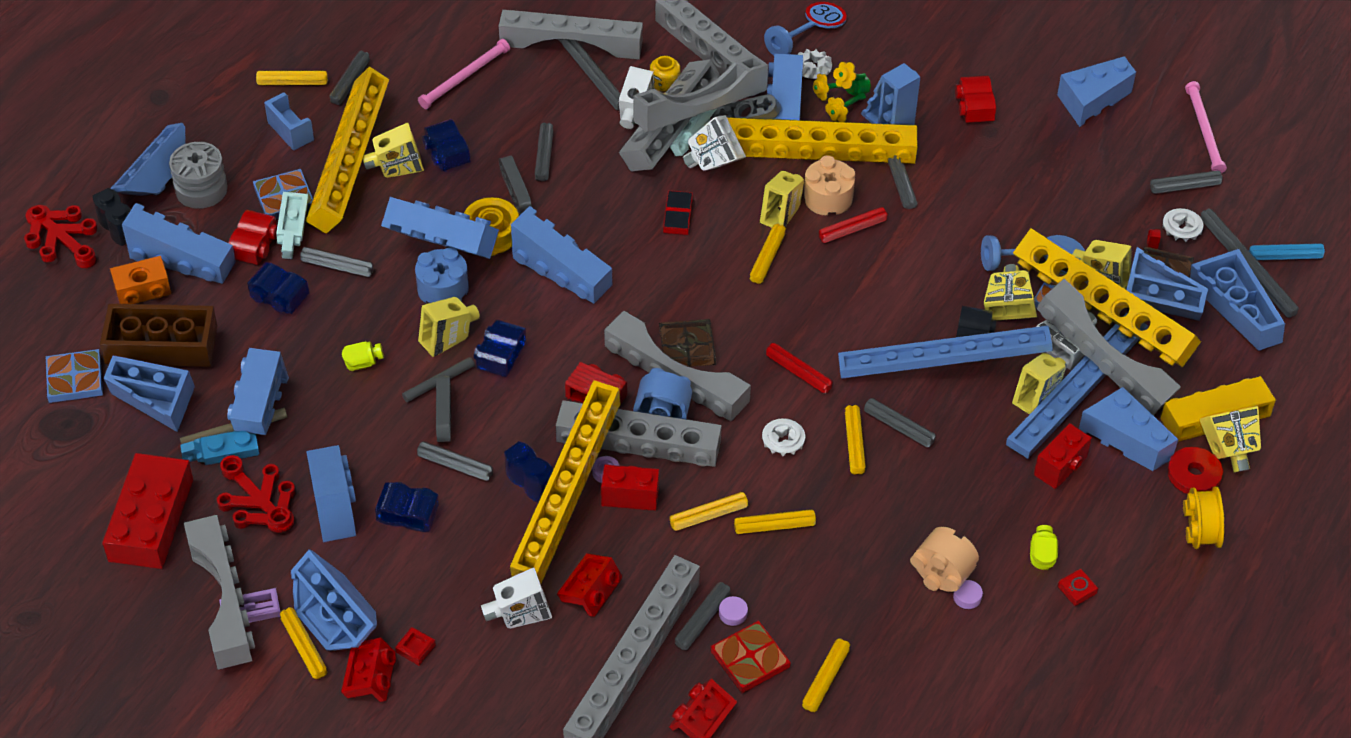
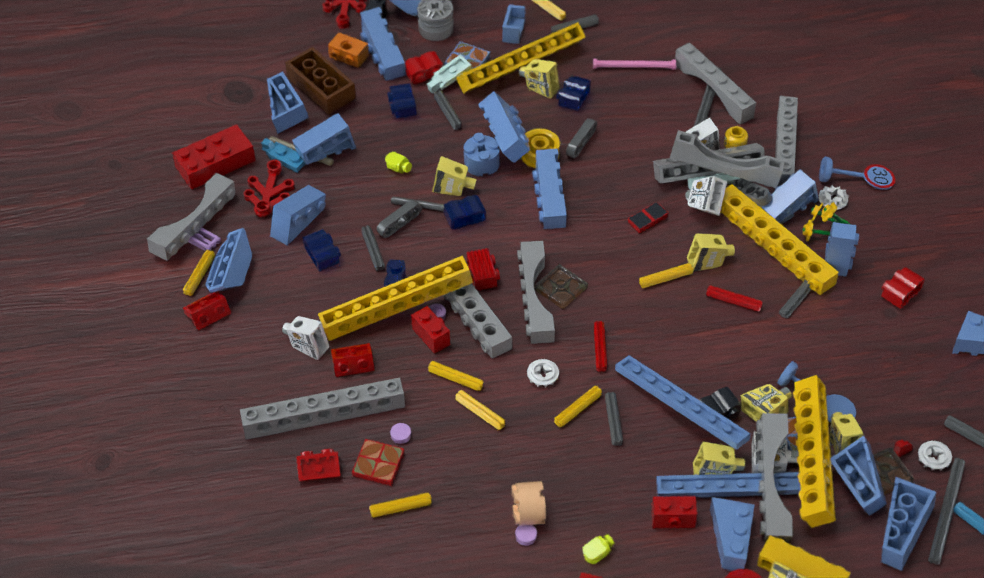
camera: 50 degrees right, 0 degrees up
(74, 376) = (264, 69): tile -> none
(415, 646) = (242, 317): red tile -> none
(544, 152) = (620, 133): dark grey axle -> none
(663, 394) = (502, 298): medium blue brick -> none
(702, 616) = (382, 422): dark grey axle -> none
(829, 186) = (745, 266): light nougat brick -> none

